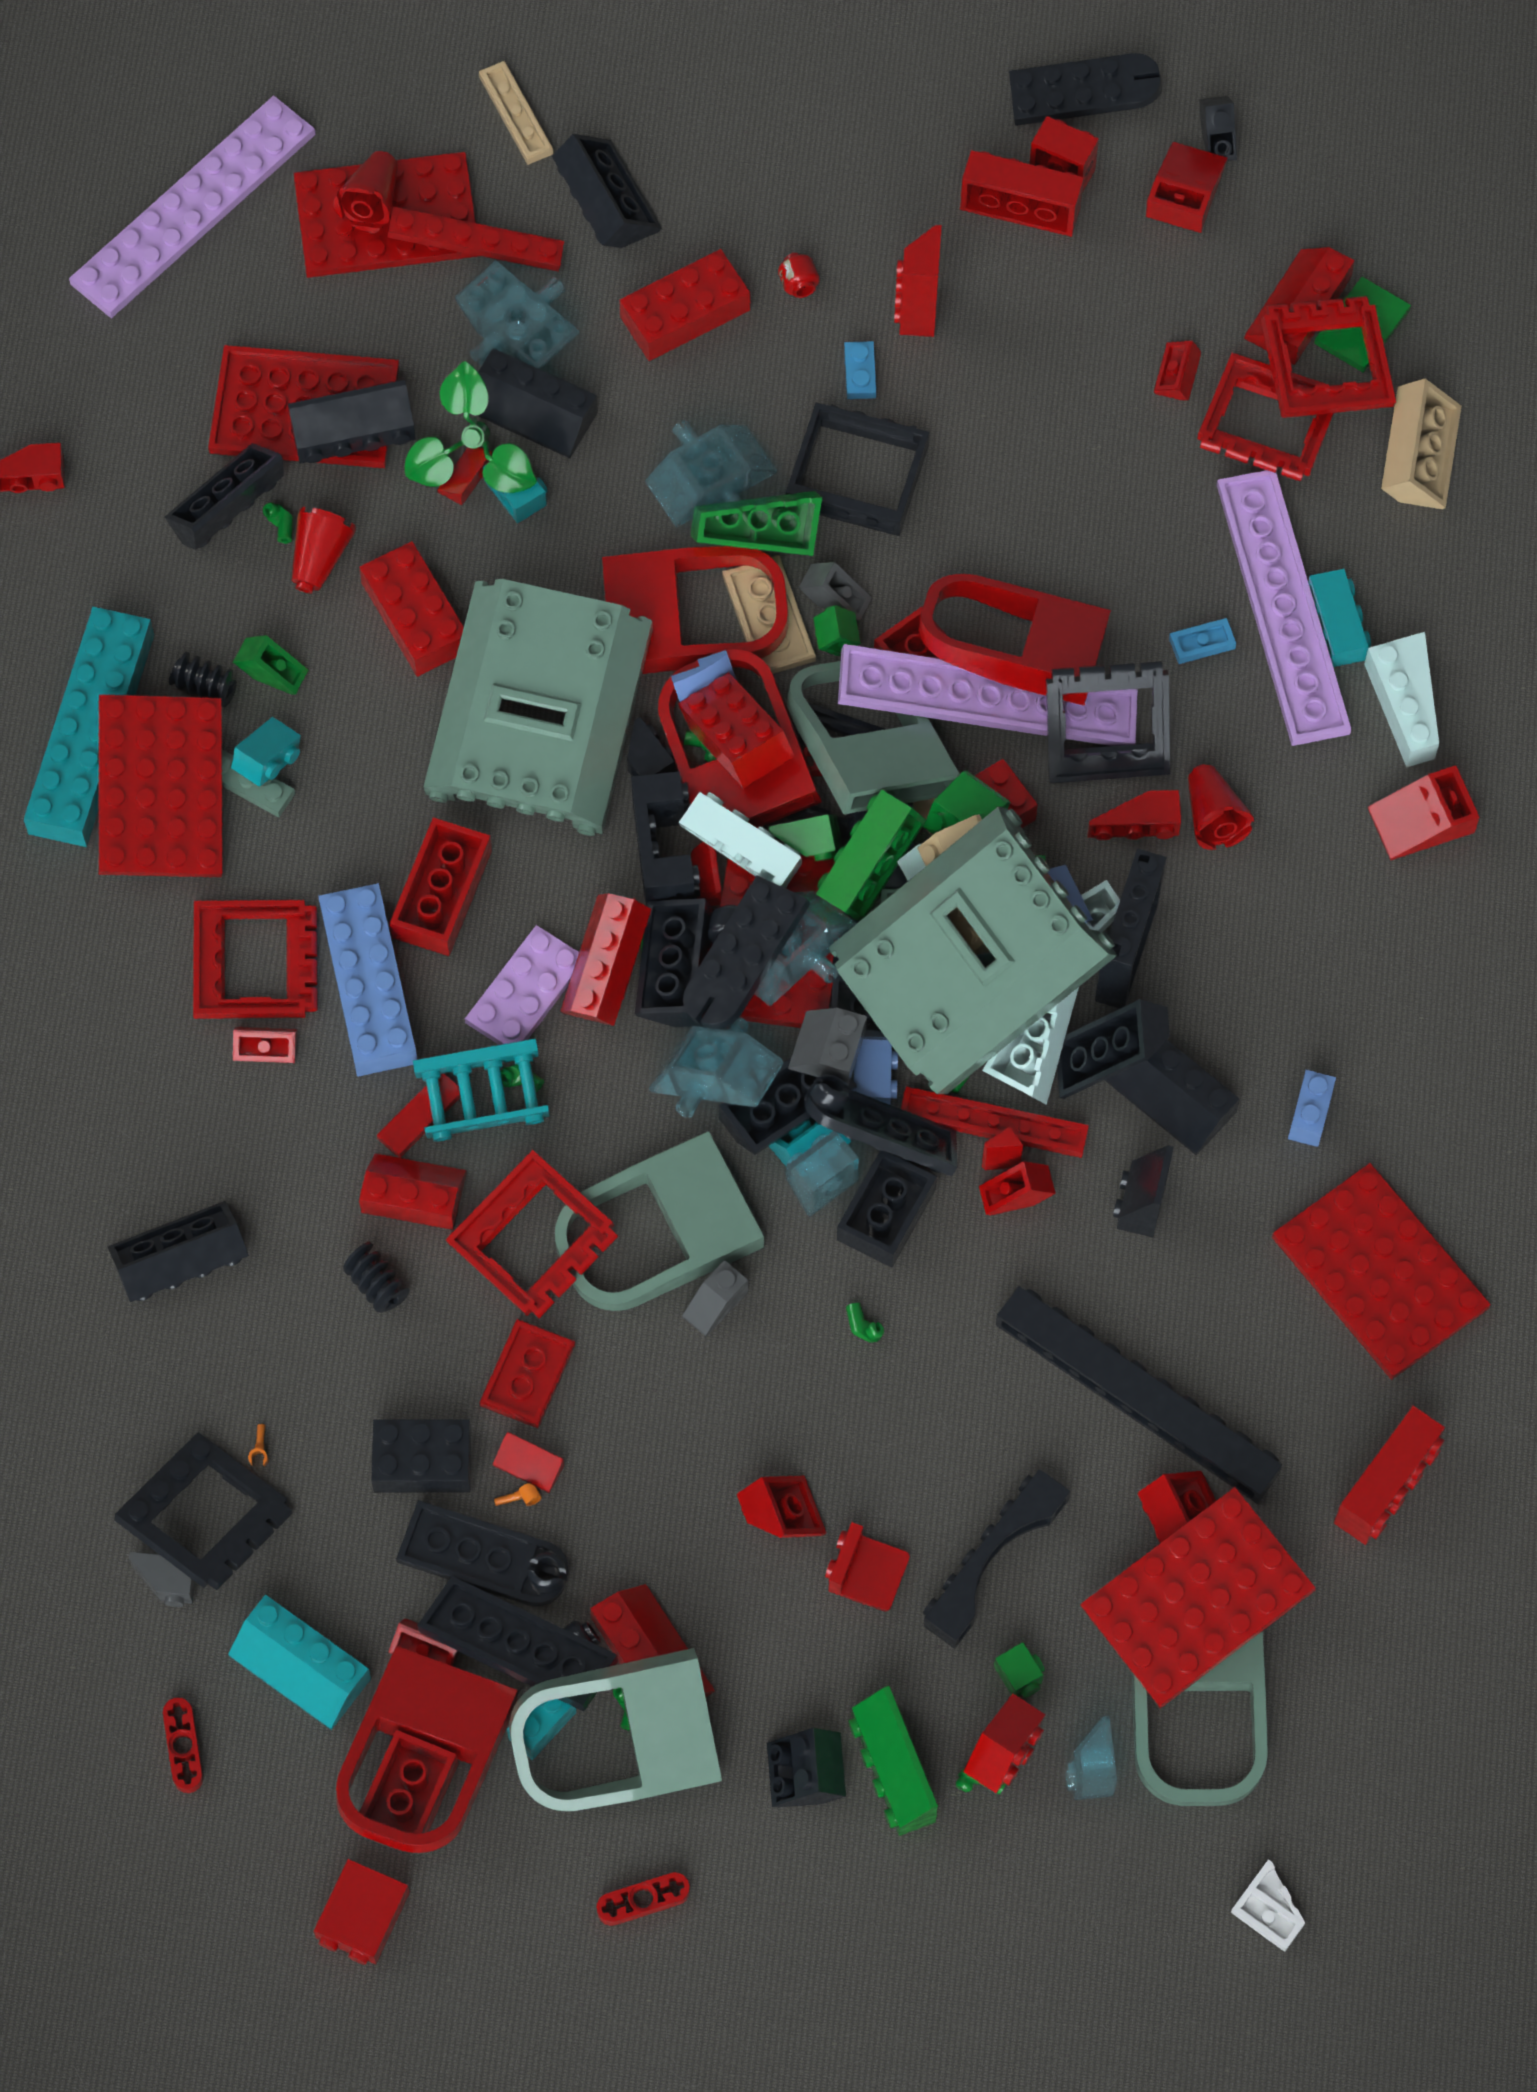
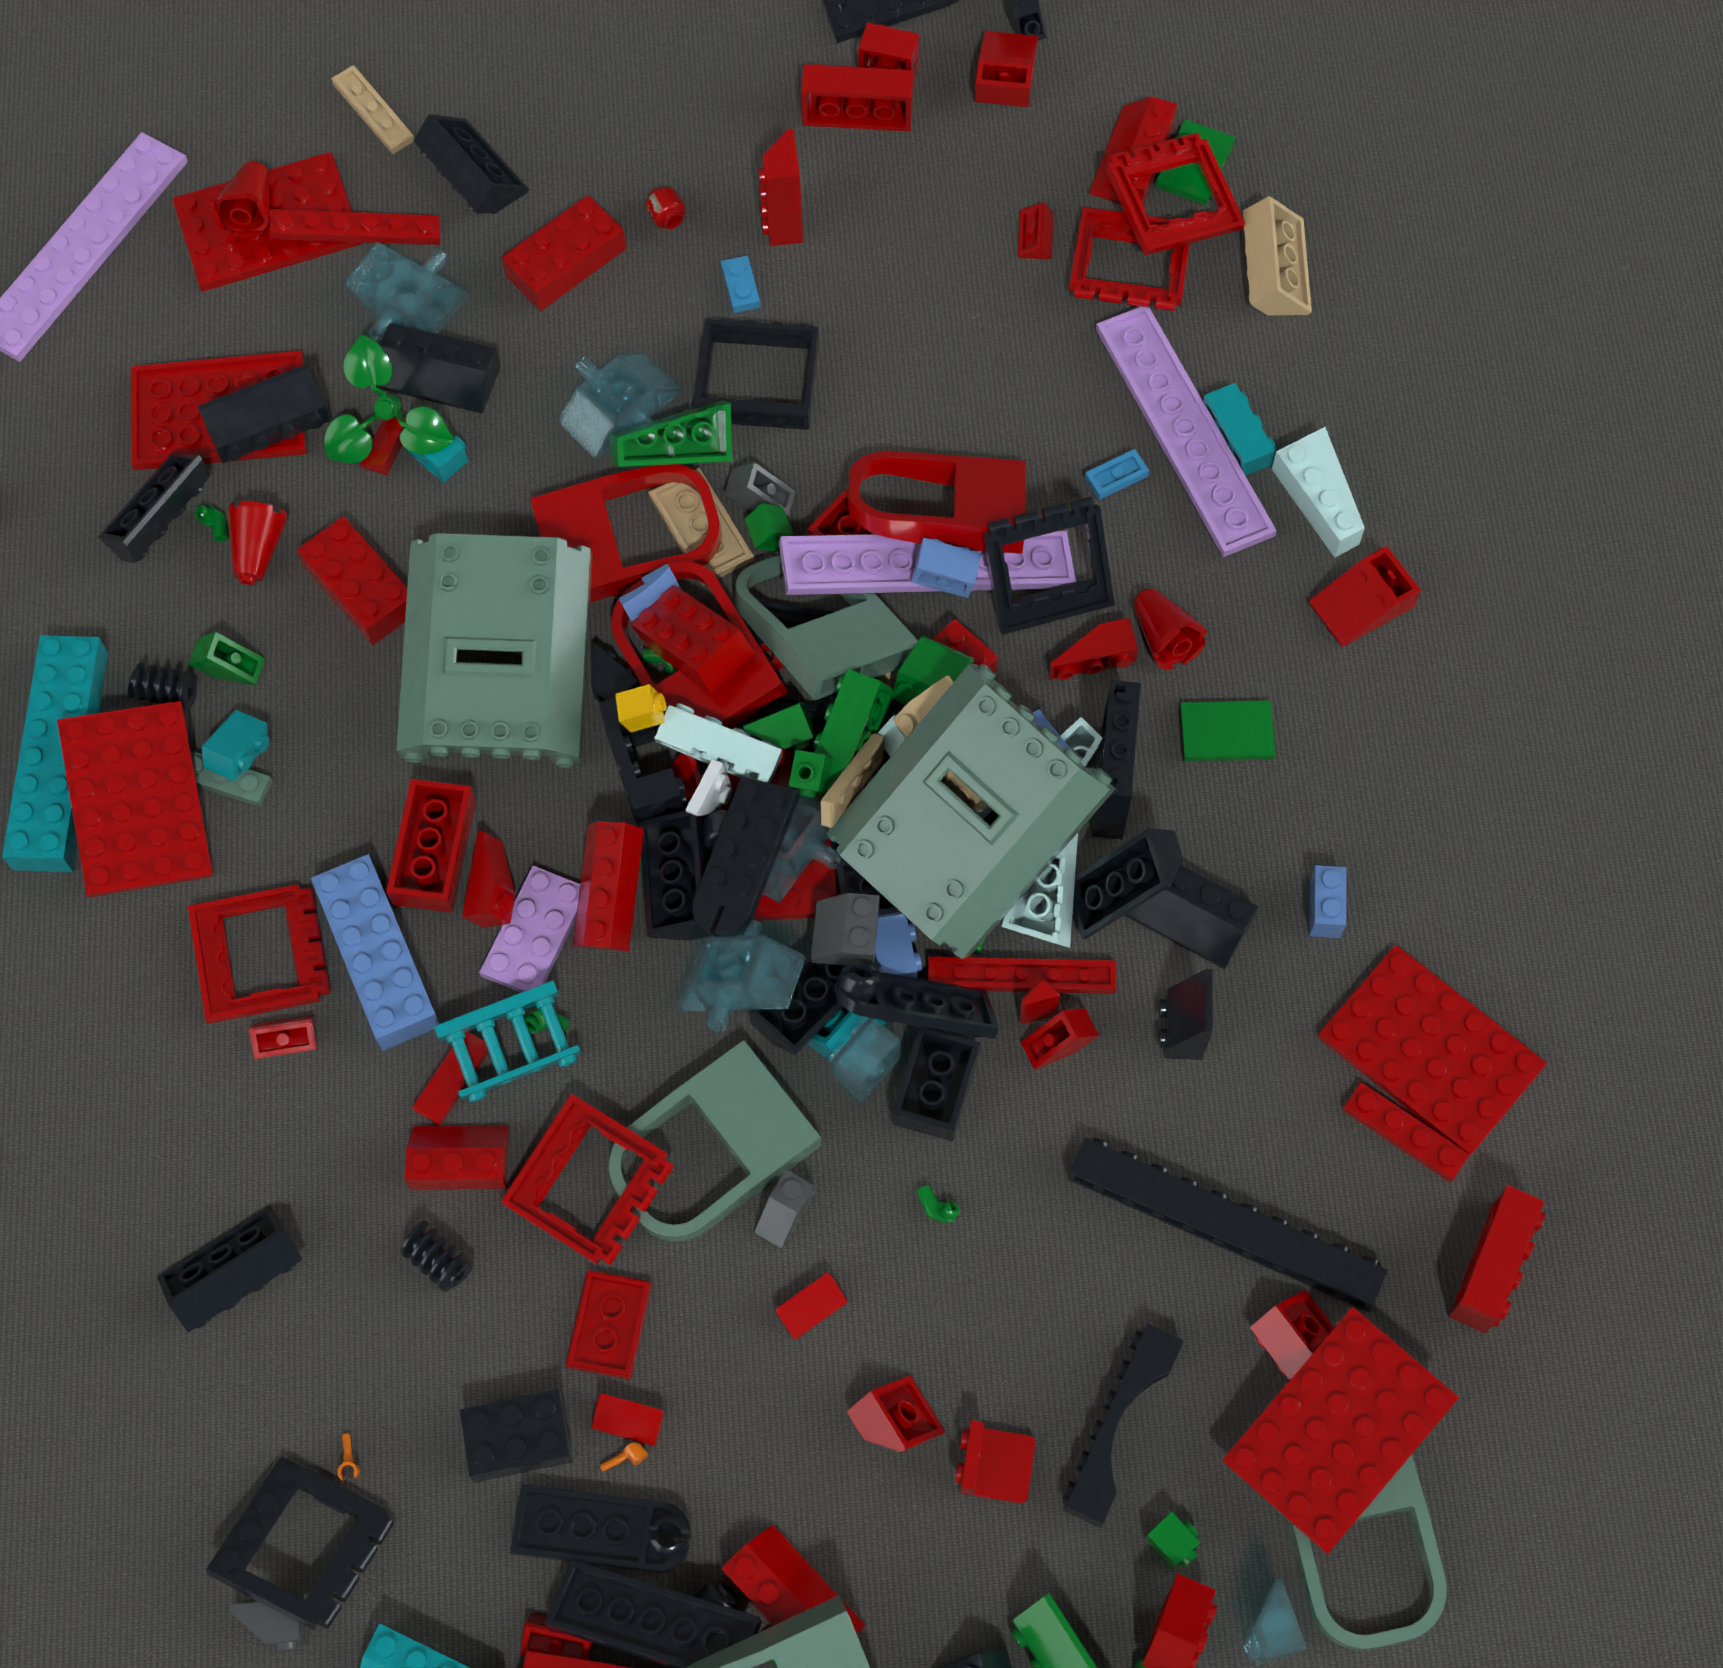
camera: 10 degrees left, 0 degrees up
(491, 935) = (490, 885): none -> red slope
(671, 790) = (640, 708): none -> yellow brick
(722, 1393) = (811, 1306): none -> red slope
(725, 885) = (712, 791): none -> white wing
(824, 885) = (810, 773): none -> green brick
(865, 899) = (852, 780): none -> tan tile
(1003, 705) = (946, 567): none -> medium blue brick
(1253, 922) = (1227, 731): none -> green tile
(1335, 1343) = (1406, 1132): none -> red plate

